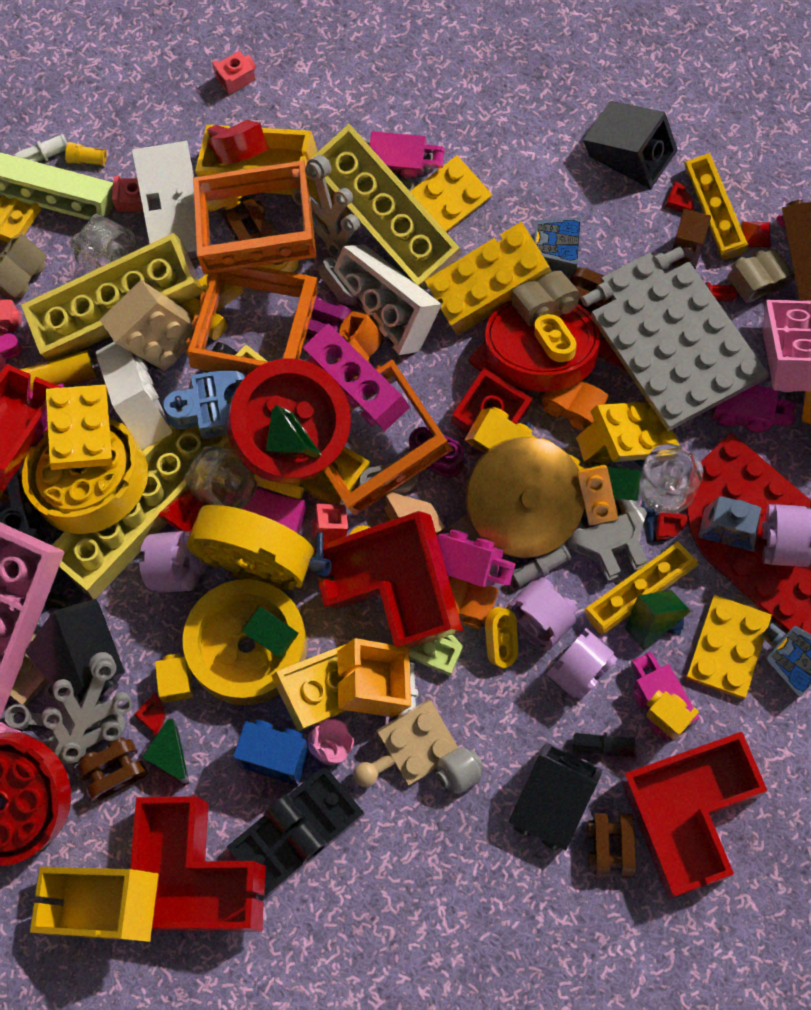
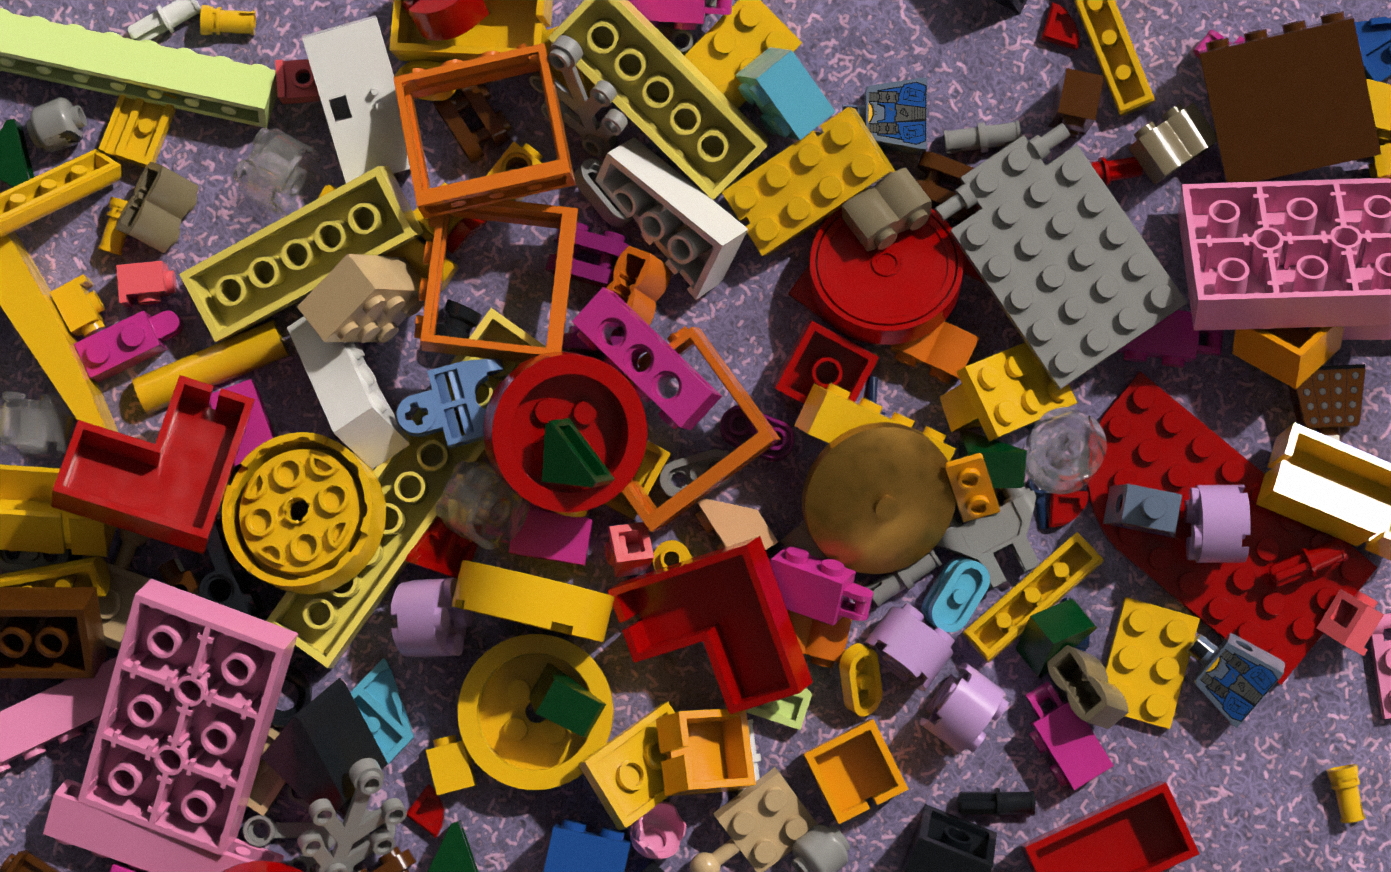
camera: 10 degrees left, 15 degrees up
(78, 427) = (291, 460): yellow plate -> none
(128, 633) = (384, 710): none -> medium azure wing
(236, 299) = (463, 232): none -> red tile
(319, 564) = (621, 613): dark blue hand -> none
(475, 216) = (784, 94): none -> medium azure brick
(491, 705) = (854, 769): none -> light orange piece
(555, 338) = (905, 277): yellow plate -> none
(582, 575) = (955, 594): none -> medium azure brick
(610, 264) = (981, 137): none -> light grey pin
(670, 713) = (1077, 768): yellow brick -> none
(681, 654) = (1087, 687): none -> dark tan brick
(757, 233) = (1166, 73): red slope -> none

